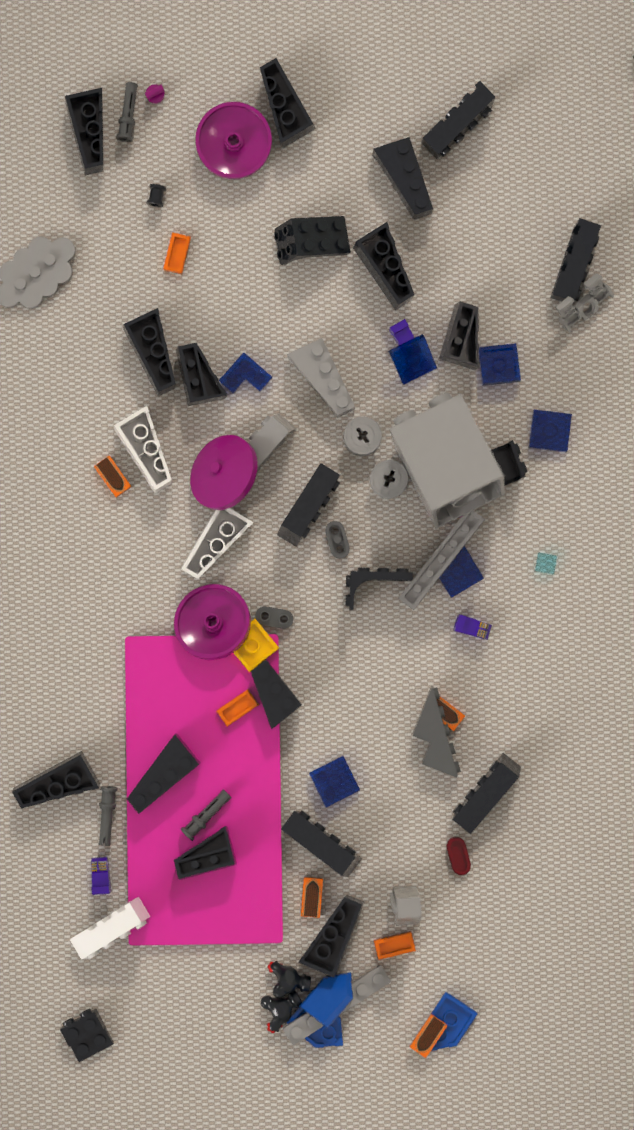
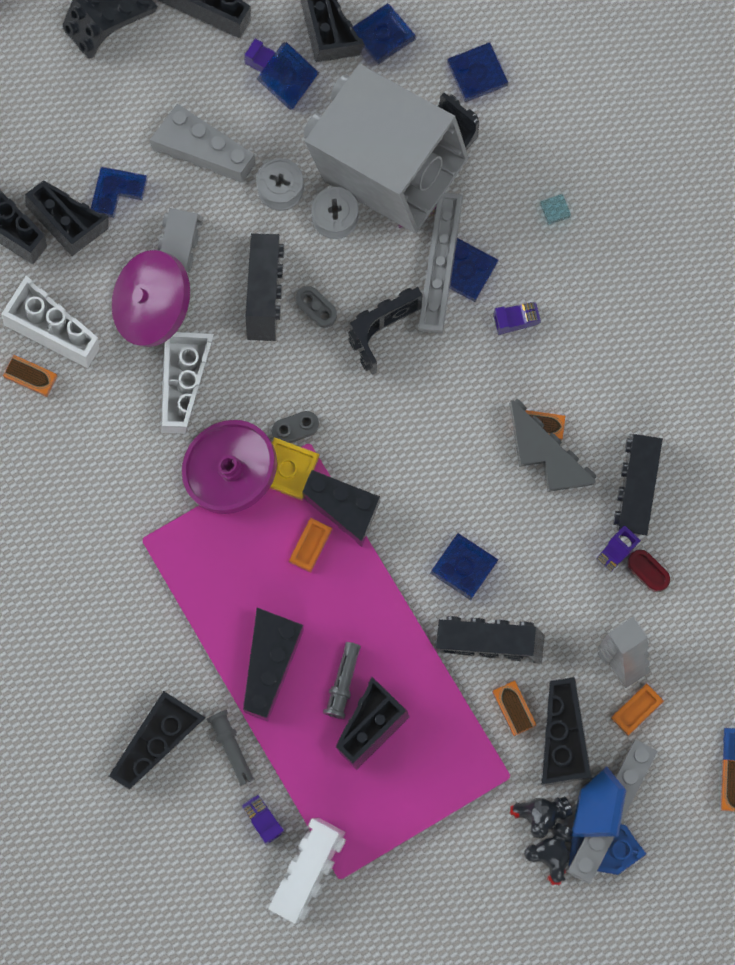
camera: 30 degrees left, 10 degrees down
(442, 832) = (617, 550): none -> dark purple leg

